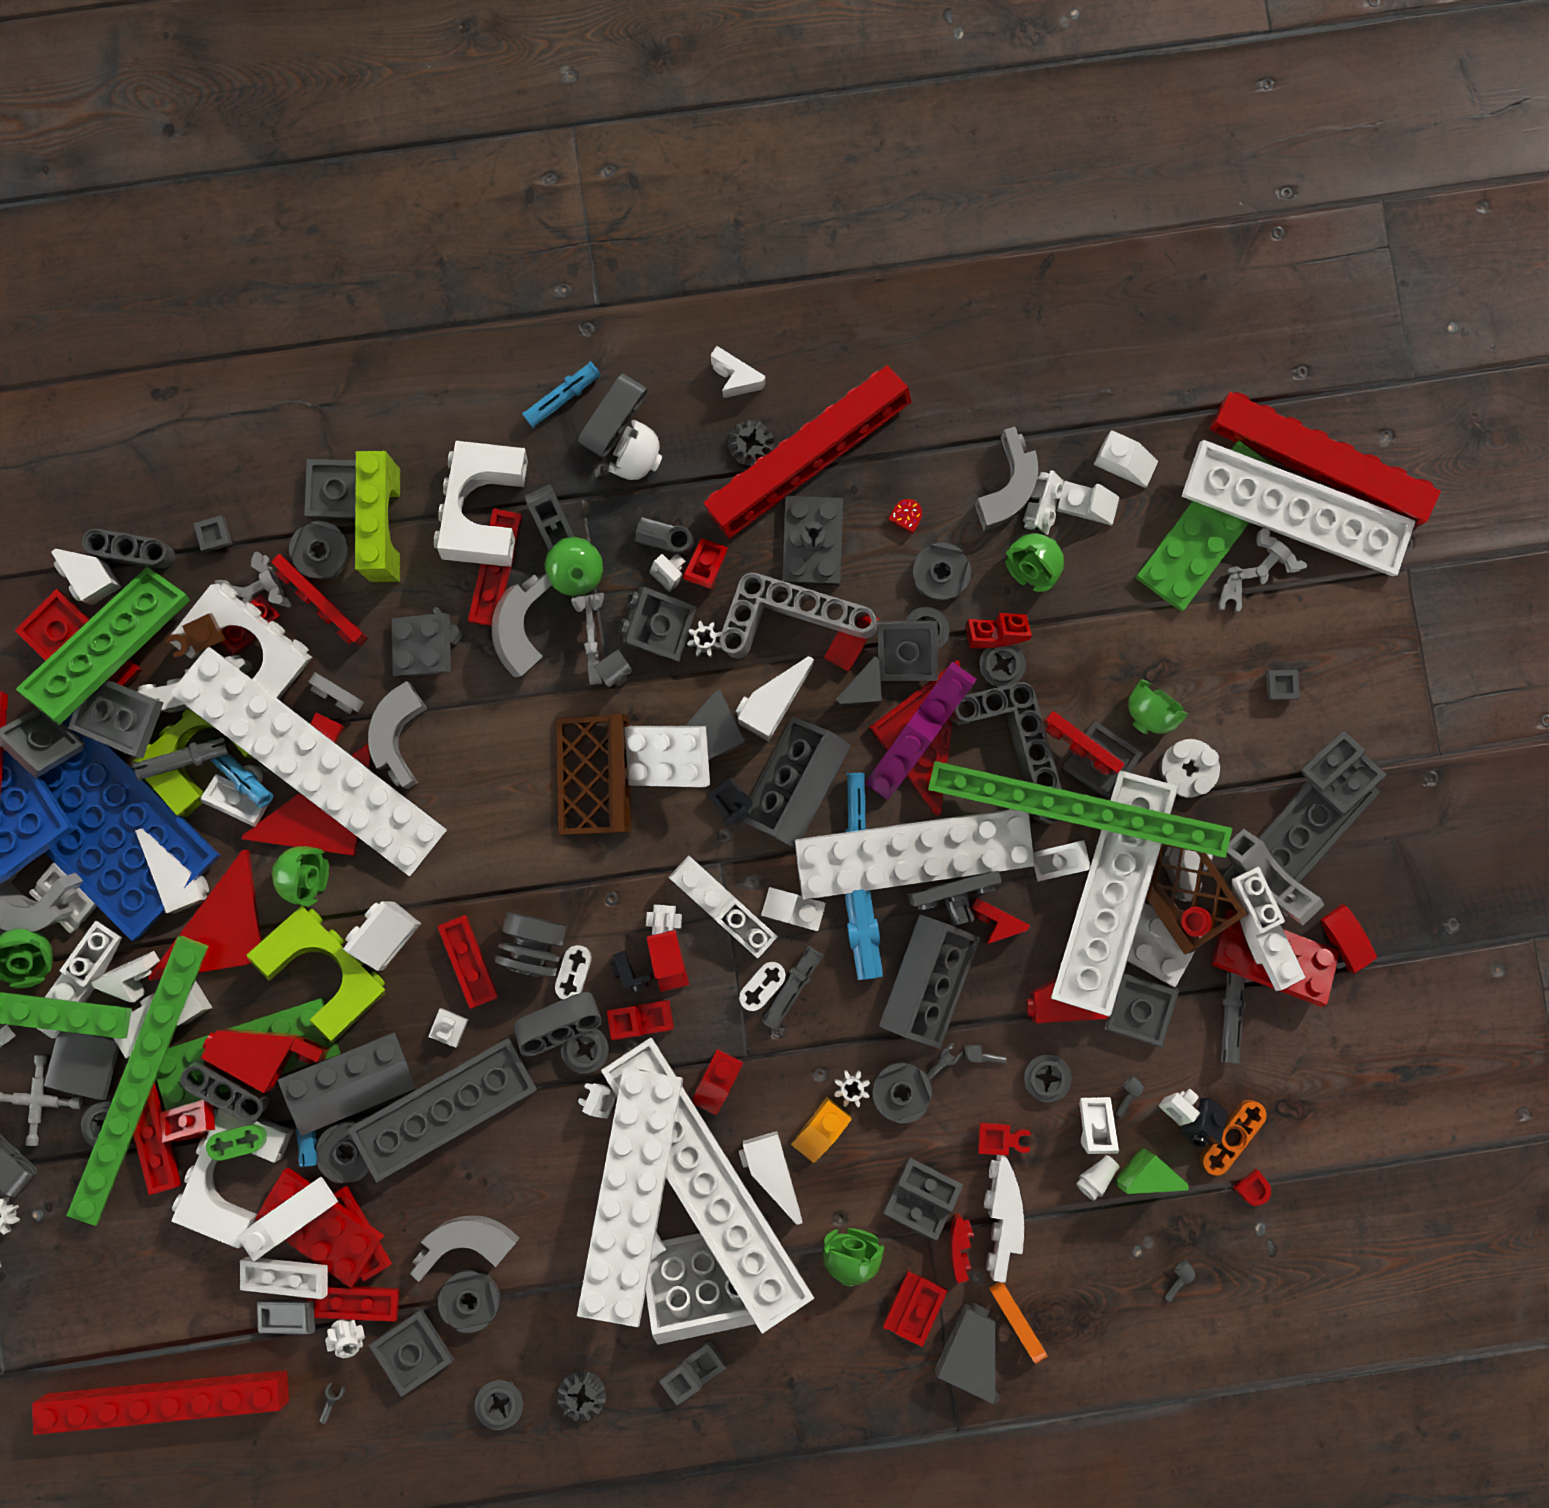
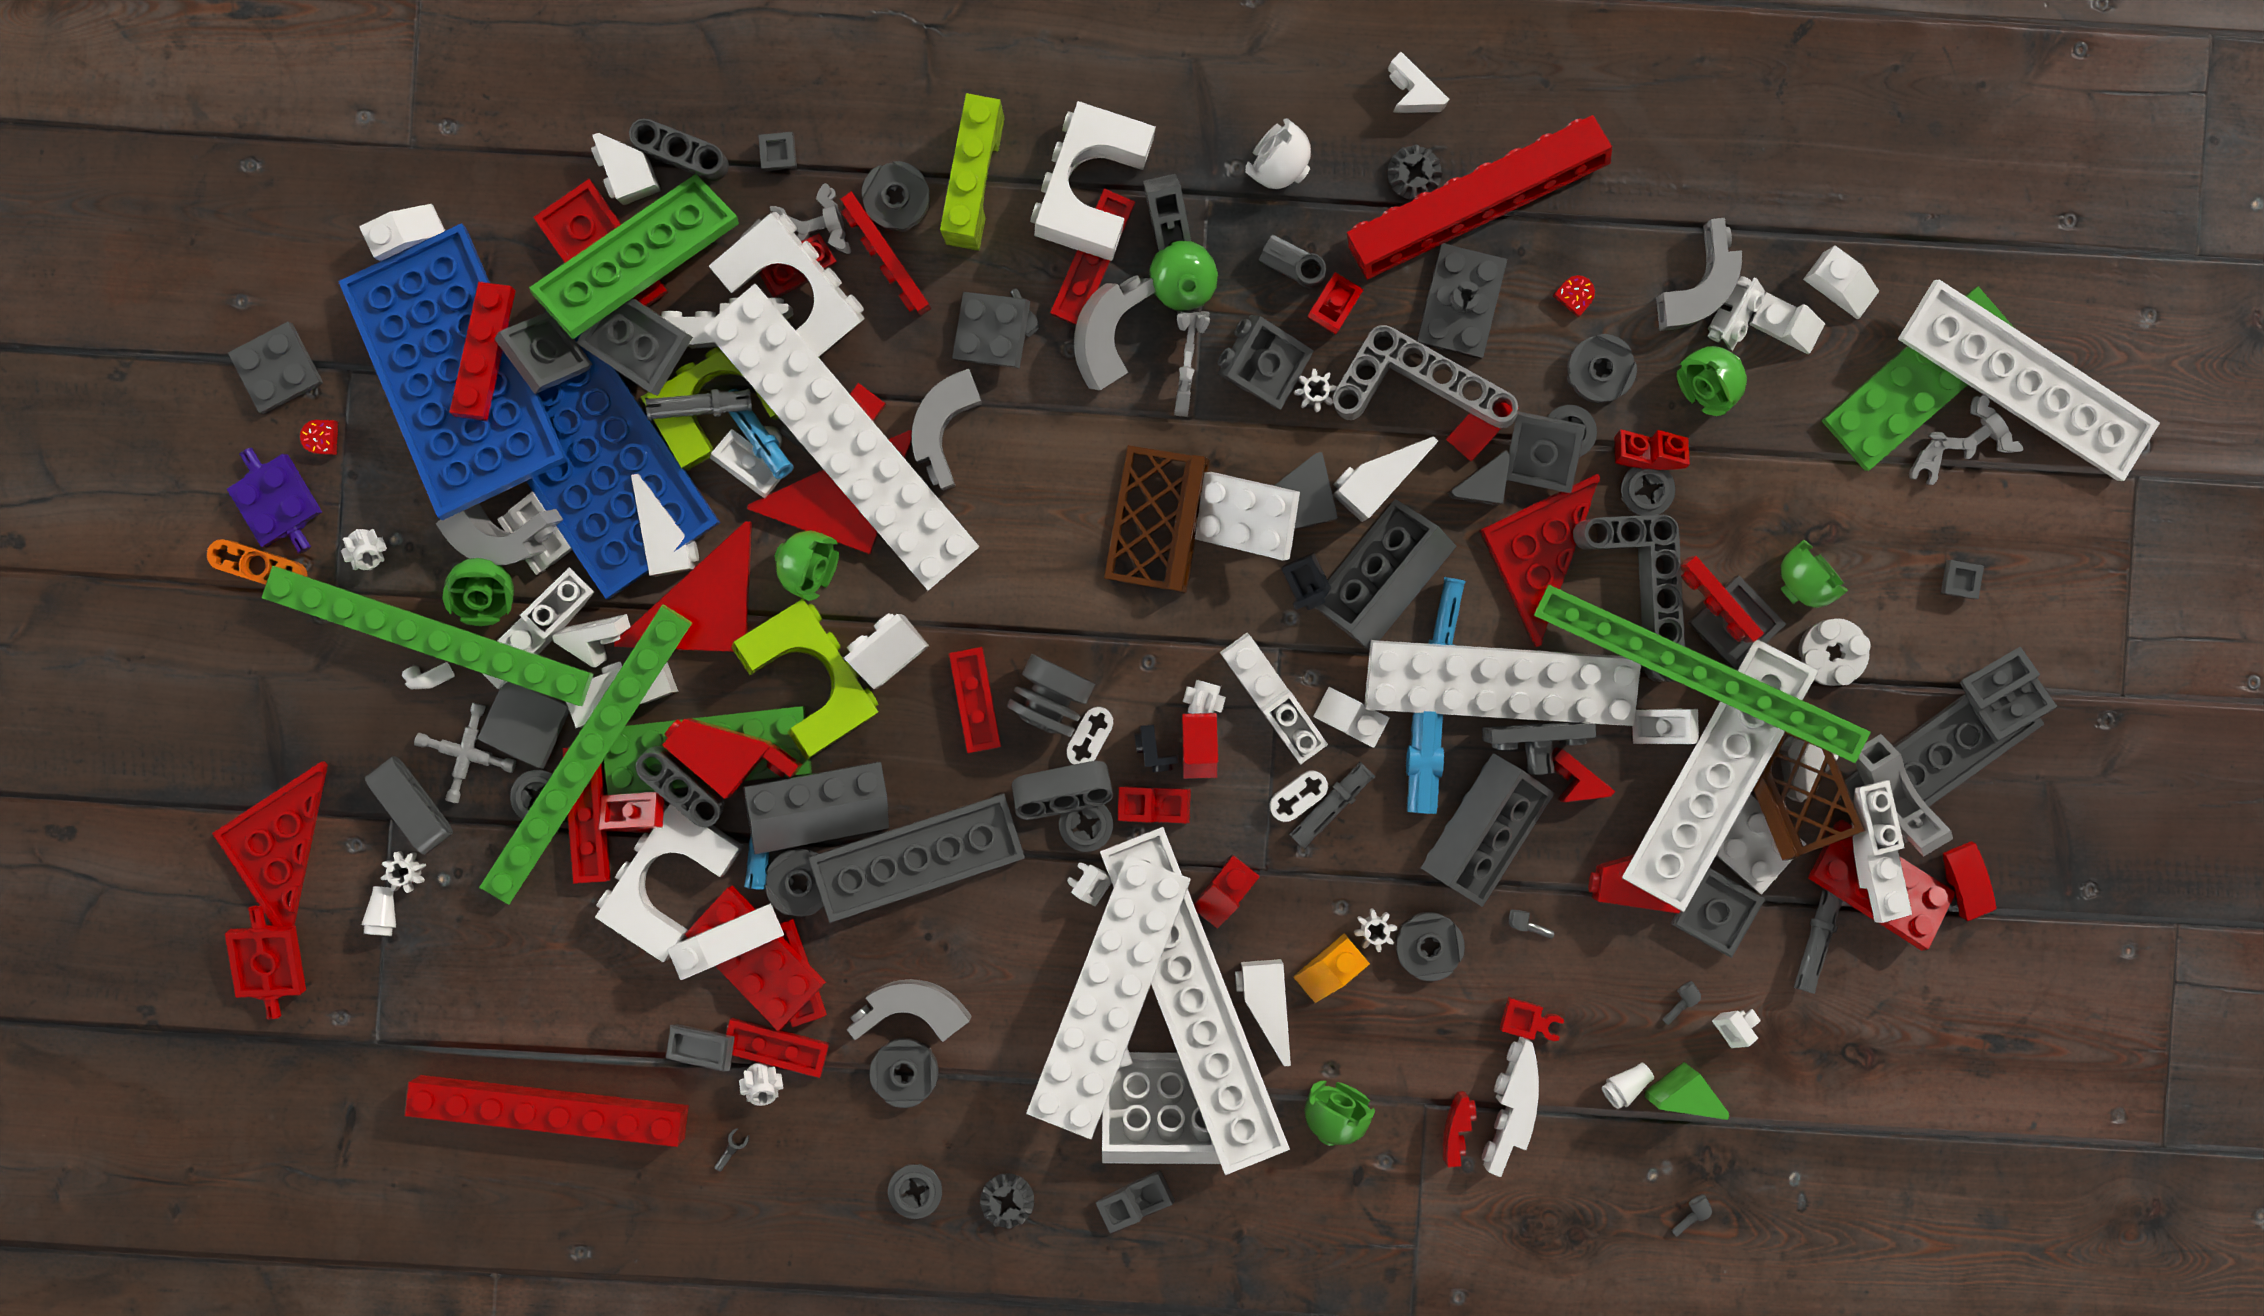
camera: 15 degrees right, 5 degrees up
(199, 634) = (748, 267): reddish brown plate -> none
(234, 1135) = (683, 854): bright green beam -> none
(284, 1277) = (706, 1004): white plate -> none
(330, 489) = (925, 128): dark grey plate -> none
(345, 700) = (894, 375): light grey plate -> none
(411, 1352) = (830, 1115): dark grey plate -> none
(448, 1027) = (938, 768): white tile -> none
(561, 394) = (1245, 52): dark azure pin -> none
(613, 415) = (1263, 107): dark grey beam -> none
(613, 669) = (1207, 404): dark grey piece -> none
(668, 571) = (1289, 303): white tile -> none
(915, 1308) = (1393, 1183): red plate -> none
(920, 731) = (1540, 547): magenta bracket -> none
(922, 1199) = (1427, 1068): dark grey slope -> none
(946, 1059) = (1486, 920): dark grey hand -> none
(970, 1353) = (1445, 1245): dark grey slope -> none
(1018, 1322) = (1504, 1223): orange beam -> none
(1055, 1089) = (1600, 979): dark grey gear -> none
(1098, 1126) = (1641, 1029): white slope -> none
(1196, 921) = (1804, 827): red plate -> none
(1208, 1124) = (1763, 1054): black bracket -> none
(1240, 1115) = (1802, 1075): orange beam -> none
(1254, 1188) = (1798, 1133): red tile -> none
(1323, 458) = (2071, 328): red brick -> none

